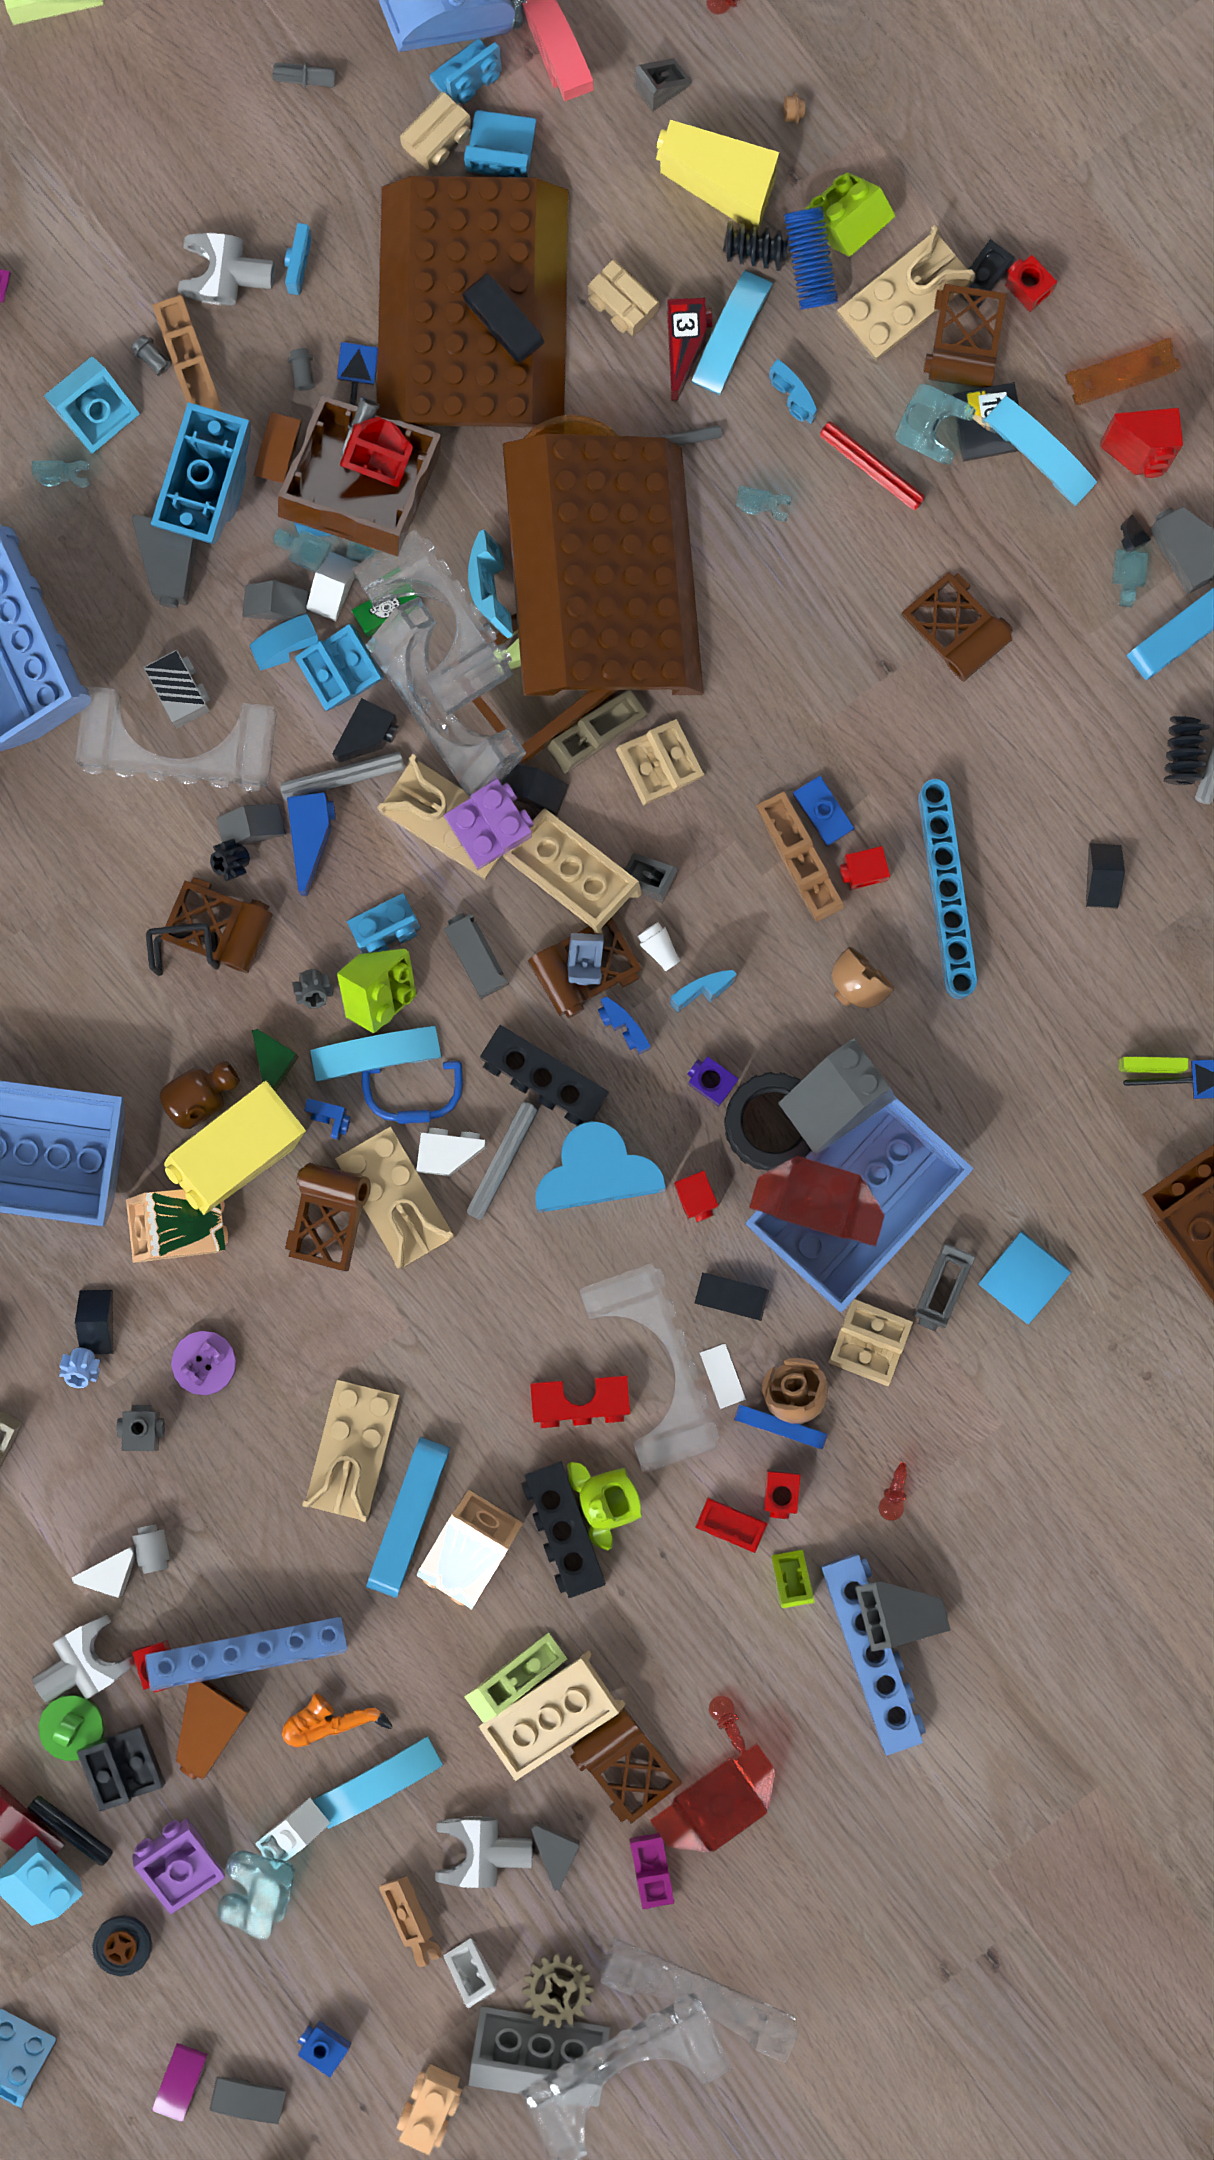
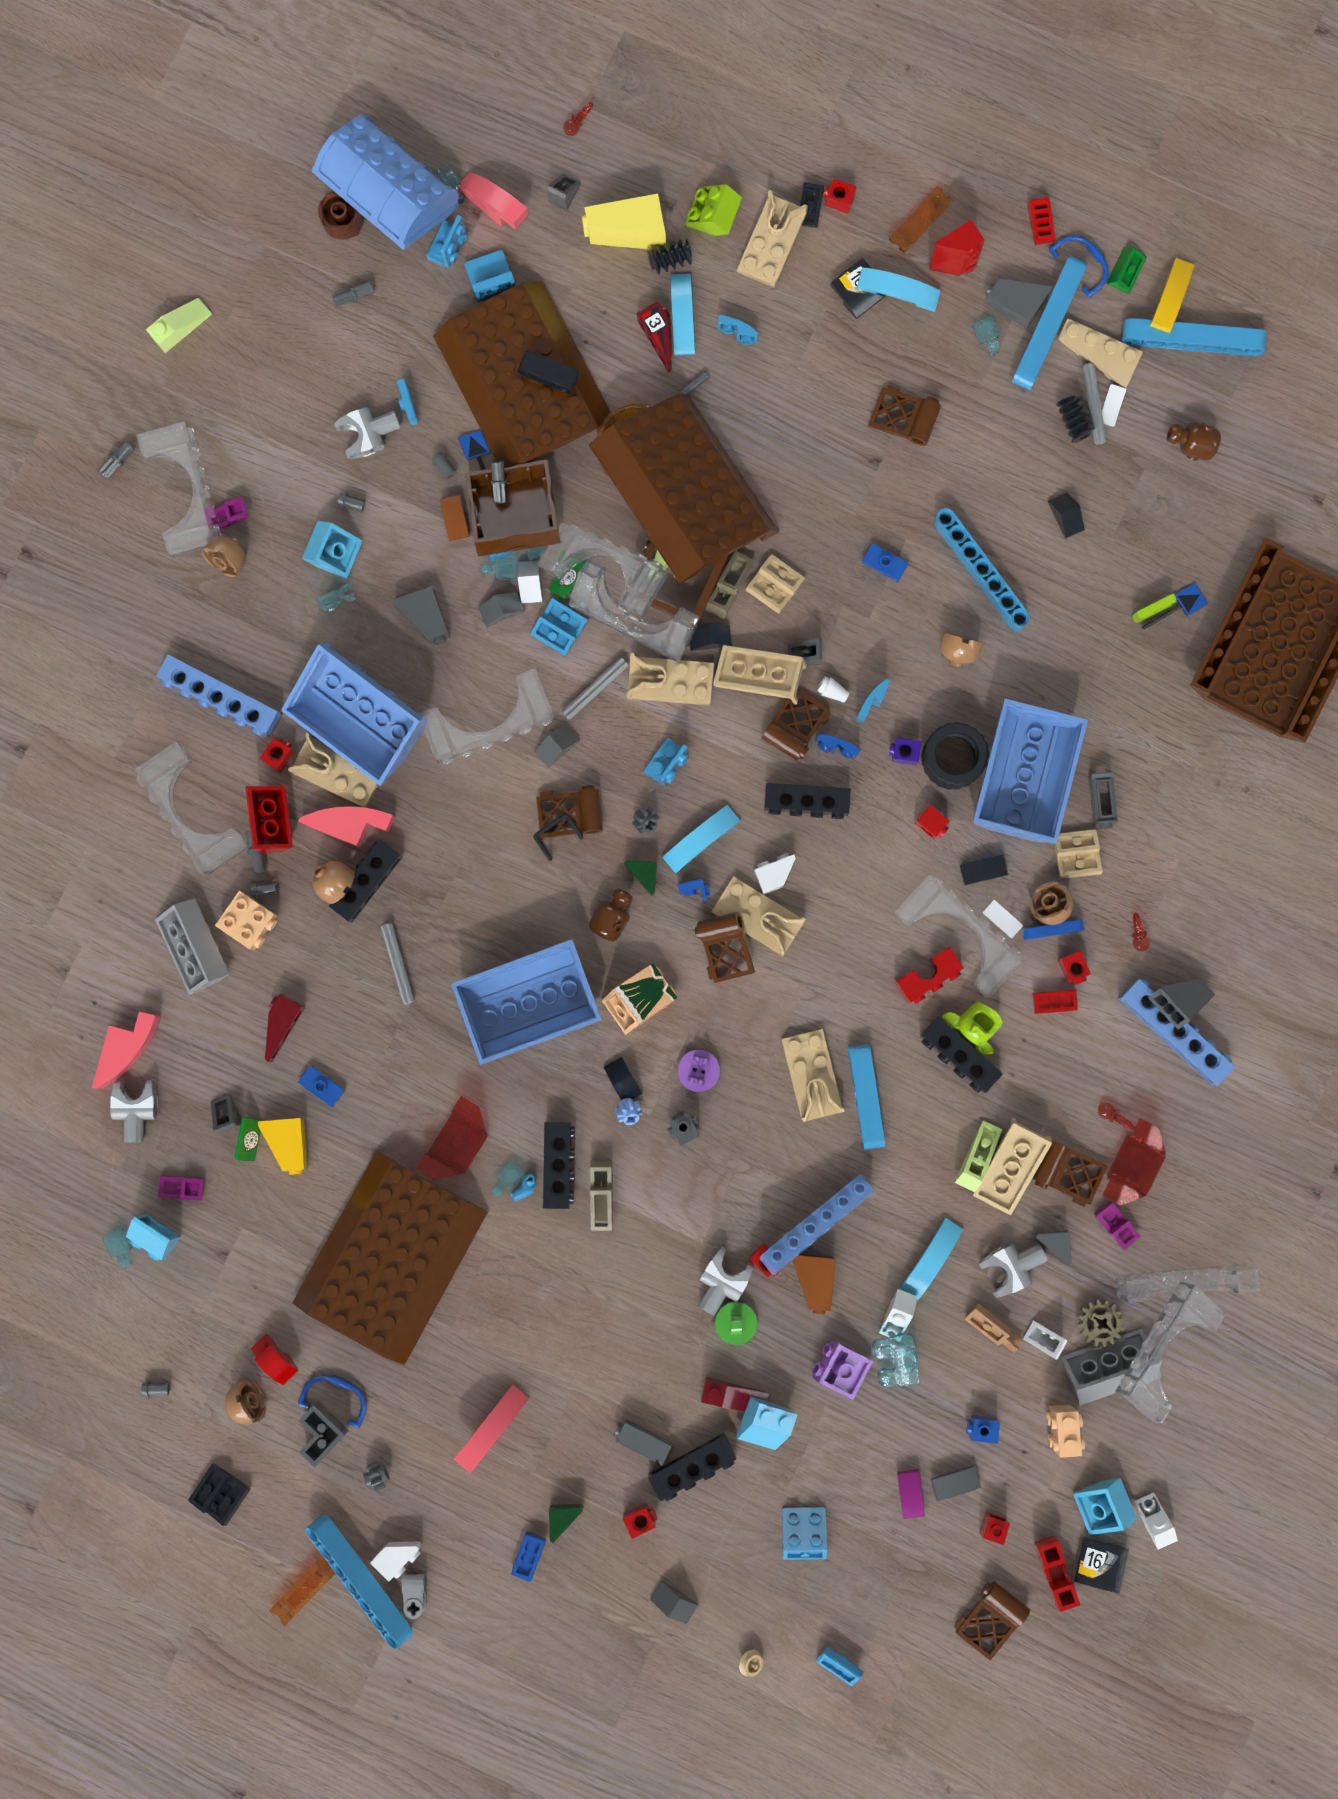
camera: 20 degrees left, 0 degrees up
(70, 1830) = (767, 1383): black axle -> none
(110, 1575) = (711, 1221): white slope -> none
(110, 1950) = (840, 1438): black wheel -> none
(121, 1767) = (778, 1330): black slope -> none
(151, 1549) = (727, 1194): light grey brick -> none
(177, 689) = (471, 687): brick -> none
(186, 353) = (374, 494): medium nougat slope -> none
(204, 474) = (422, 553): dark azure brick -> none
(229, 859) = (556, 770): black gear -> none
(234, 1148) = (652, 935): light yellow slope -> none
(276, 644) = (516, 631): dark azure slope -> none
(310, 830) = (593, 728): blue slope -> none
(311, 1724) = (875, 1246): orange piece -> none
(366, 731) = (596, 654): black slope -> none
(376, 987) = (683, 799): lime slope -> none
(377, 450) = (516, 488): red slope -> none
(415, 1116) = (743, 863): blue piece -> none
(436, 131) = (448, 286): tan brick -> none
(469, 1549) = (912, 1096): slope -> none
(475, 955) = (729, 751): dark grey window -> none
(484, 563) = (612, 521): medium azure slope -> none
(489, 823) = (697, 670): medium lavender plate -> none
(502, 1160) = (808, 861): light grey axle -> none
(585, 958) = (795, 718): sand blue bracket -> none
(596, 1171) = (868, 836): dark azure brick -> none
(622, 298) = (609, 327): tan brick -> none
(756, 500) = (750, 403): clear light blue plate -> none
(792, 1579) = (1107, 1014): lime slope -> none
(793, 108) = (648, 166): medium nougat plate -> none
(799, 856) = (885, 595): medium nougat slope -> none
(809, 265) = (710, 250): blue piece -> none
(820, 1200) = (1012, 783): clear red piece -> none
(836, 1096) = (987, 719): dark grey slope -> none
(865, 868) = (927, 582): red brick -> none
(872, 465) = (805, 349): axle -> none
(921, 419) = (820, 305): clear light blue piece -> none
(961, 363) = (826, 262): reddish brown piece -> none
(1024, 1277) = (1146, 769): dark azure slope -> none
(1134, 535) = (978, 310): black tile -> none

